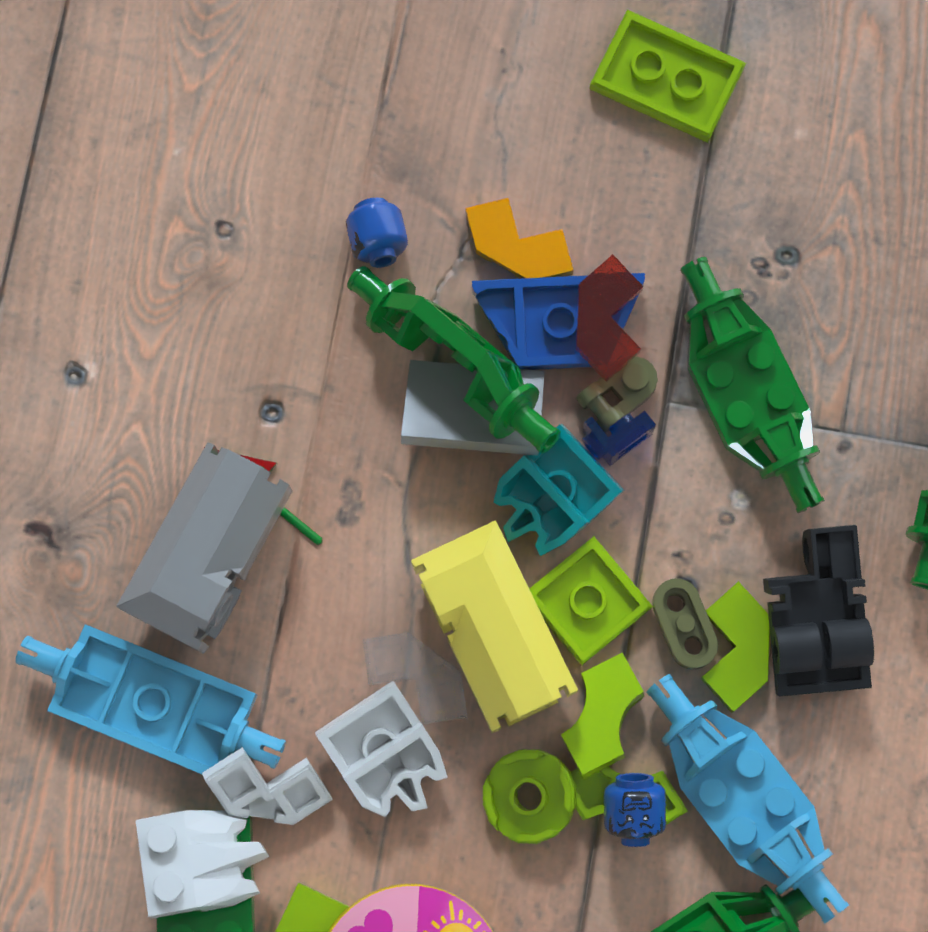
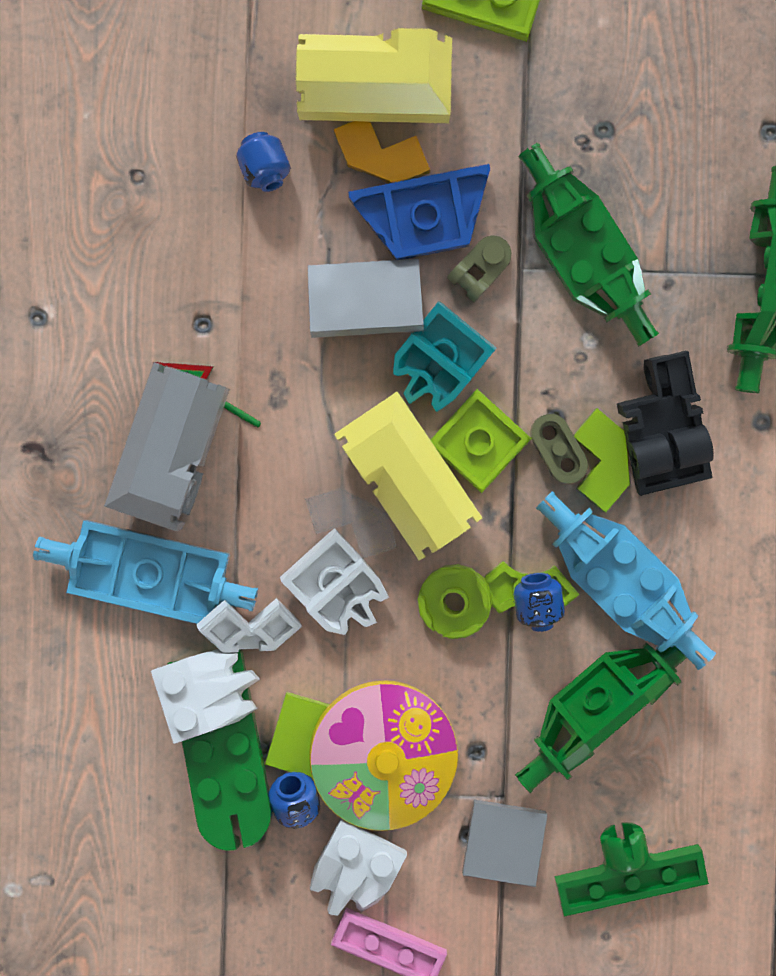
camera: 15 degrees left, 10 degrees up
(496, 374) = (381, 269): green plate -> none
(523, 158) = (375, 78): none -> light yellow brick
(596, 734) = (506, 514): lime tile -> none
(598, 335) = (458, 222): clear red tile -> none
(626, 435) = (491, 303): clear blue bracket -> none

